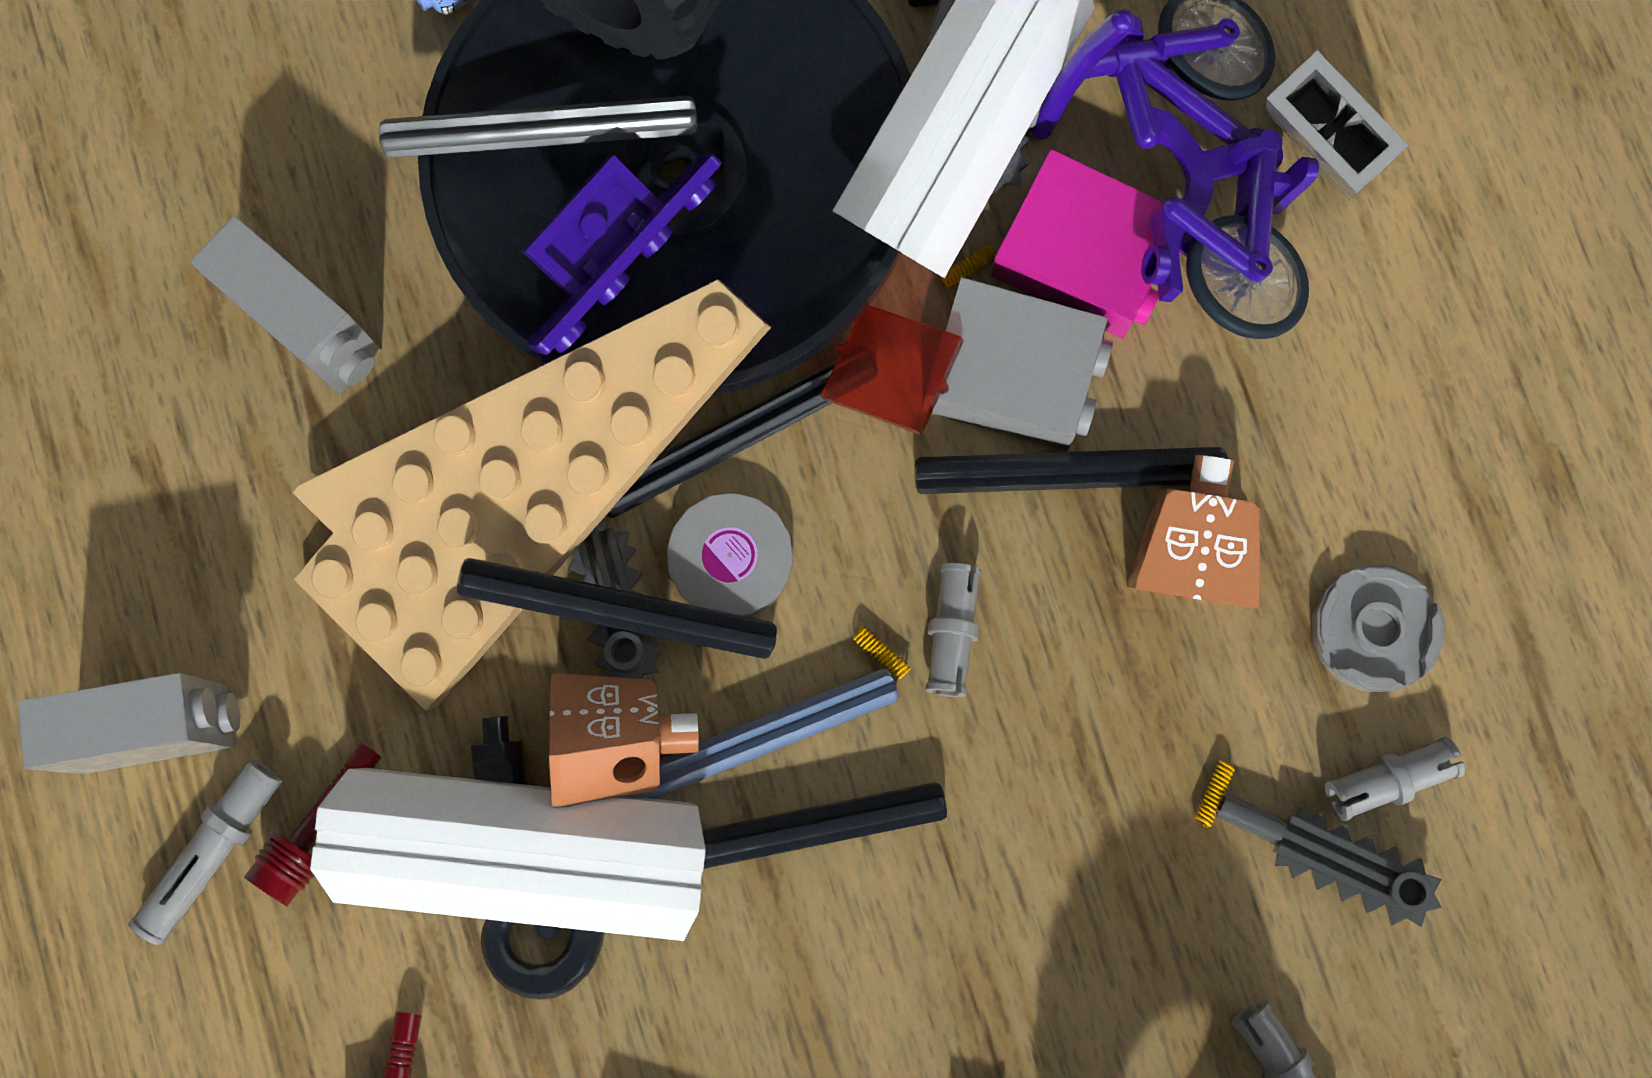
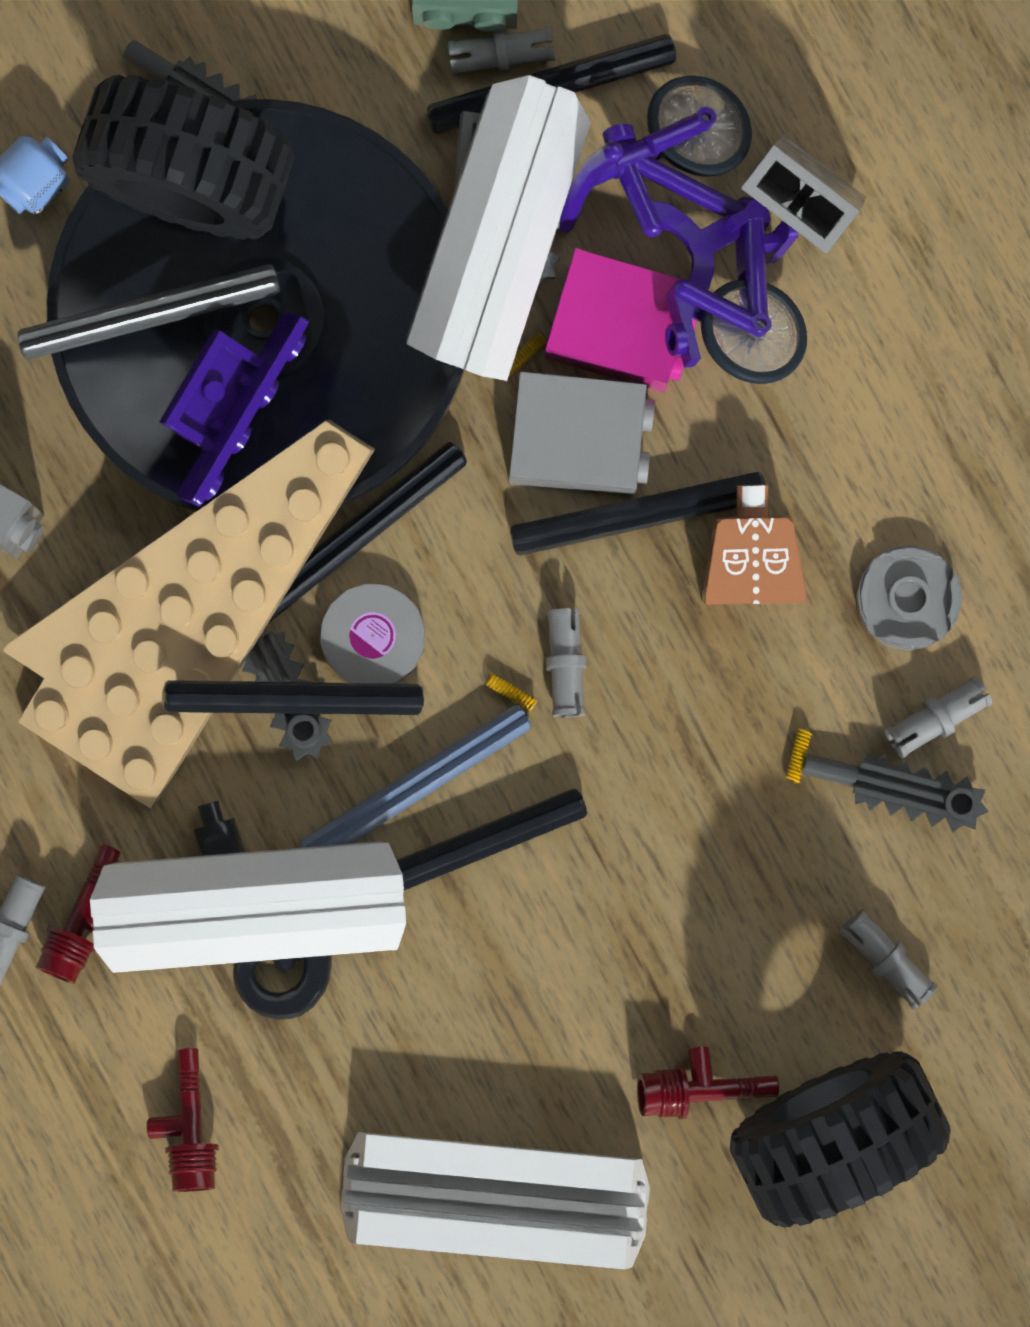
camera: 20 degrees left, 5 degrees up
(610, 737) = (307, 801): nougat torso -> none
(892, 369) = (477, 459): clear red piece -> none

